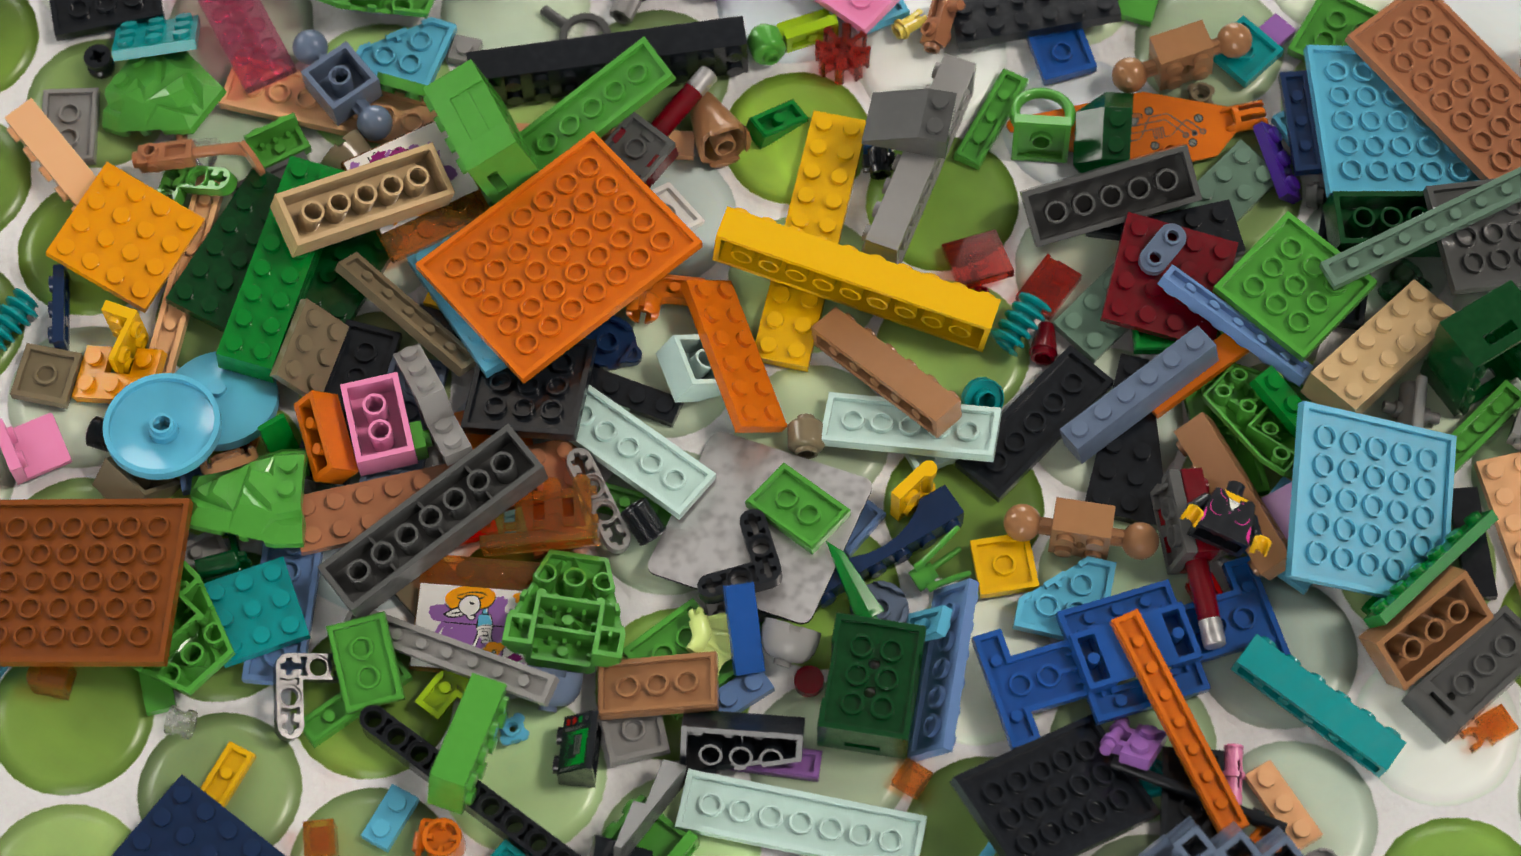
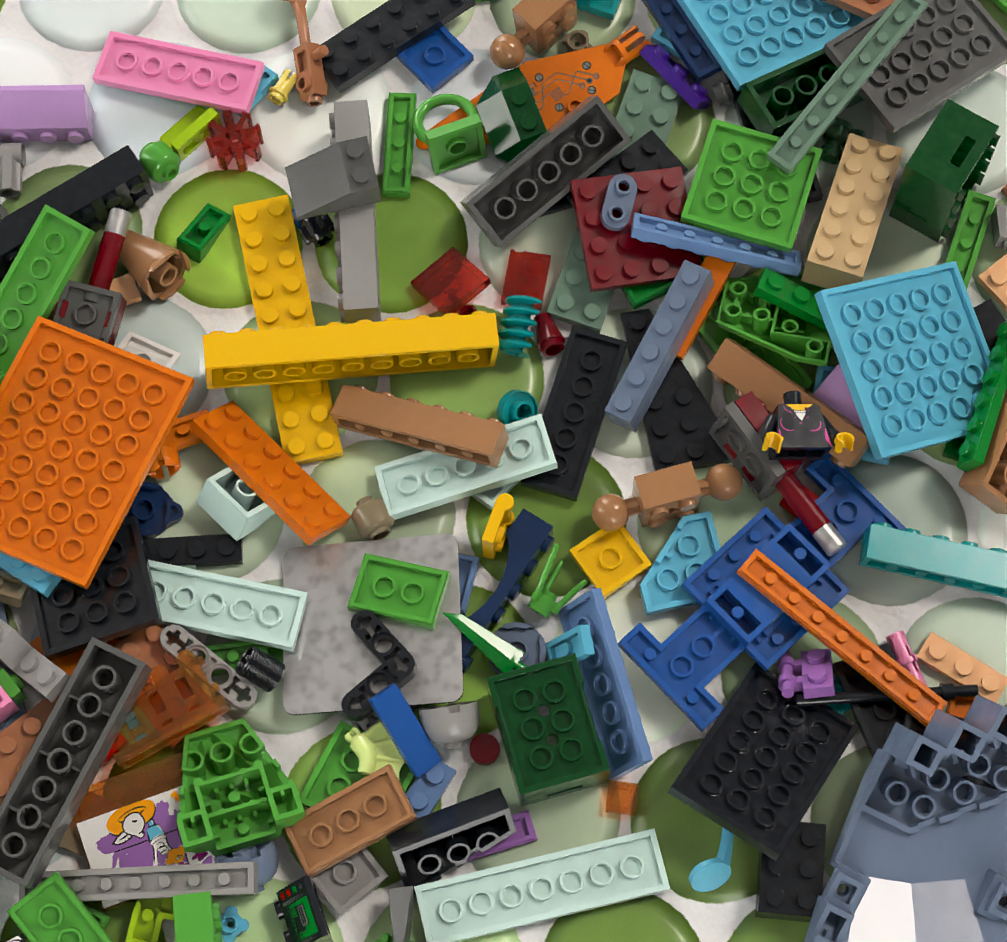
camera: 25 degrees left, 5 degrees up
(1411, 404) = (900, 250): light grey pin -> none

